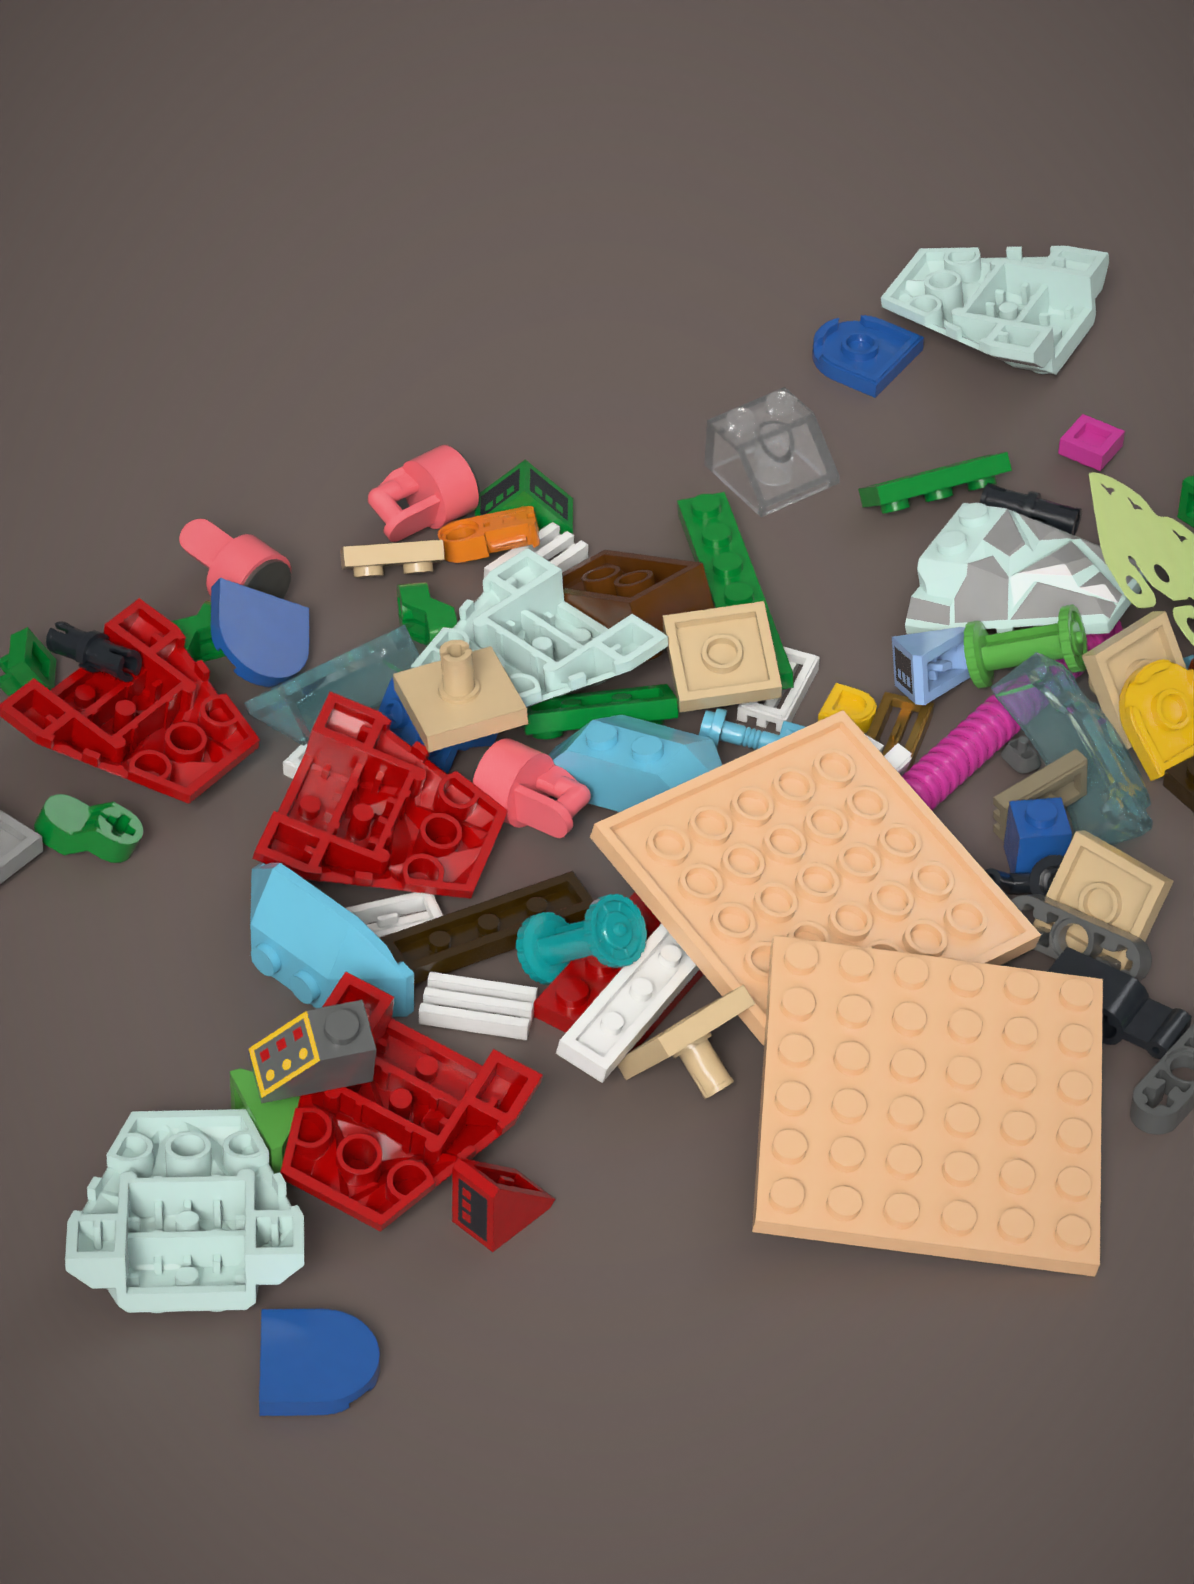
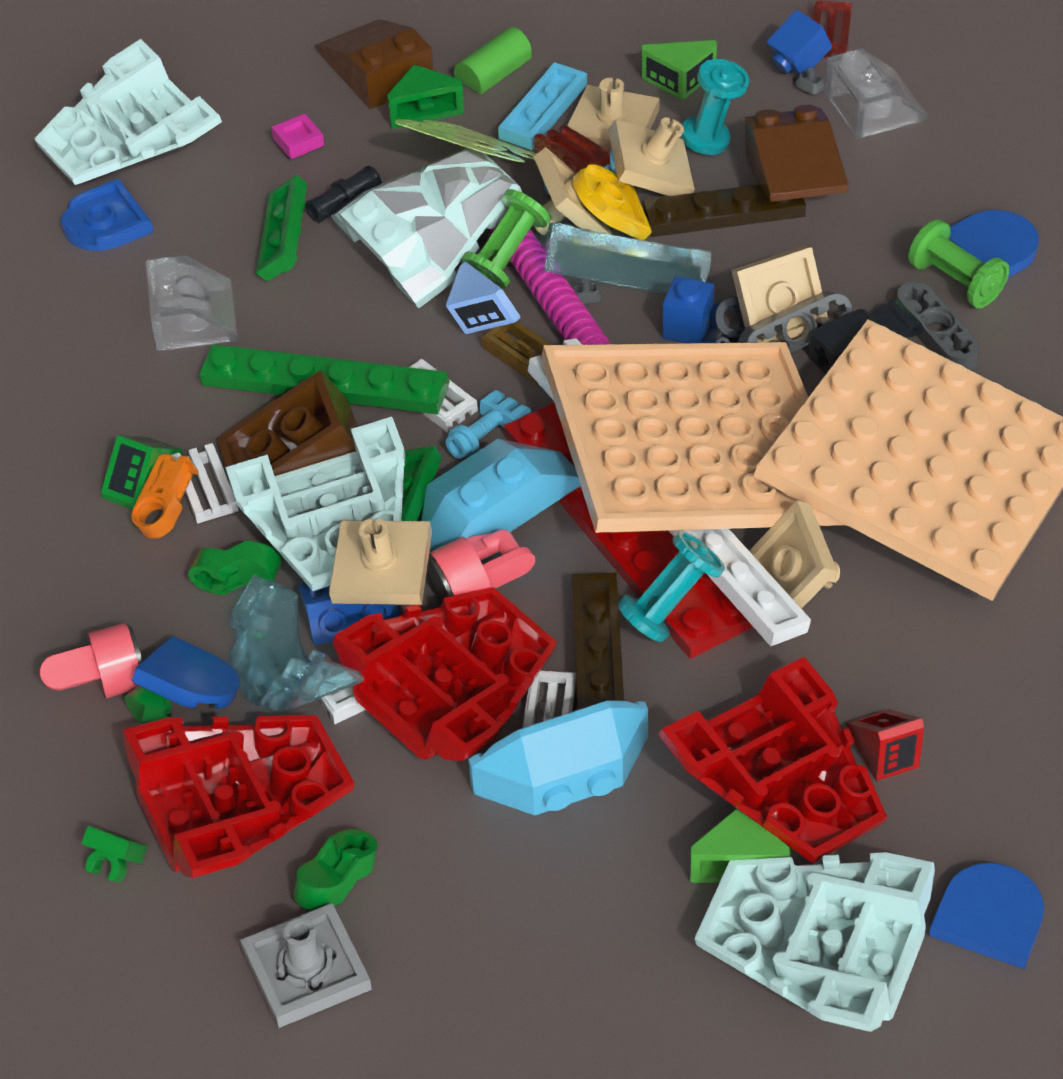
camera: 60 degrees left, 5 degrees up
(94, 651) = (150, 788): black pin -> none
(315, 1053) = (743, 776): dark grey slope -> none
(370, 559) = (149, 555): tan plate -> none
(437, 488) = (95, 512): coral piece -> none
(481, 1000) = (655, 676): white tile -> none
(722, 656) = (419, 398): tan tile -> none
(854, 702) = (481, 366): yellow tile -> none
(1061, 778) = (647, 293): dark tan tile -> none

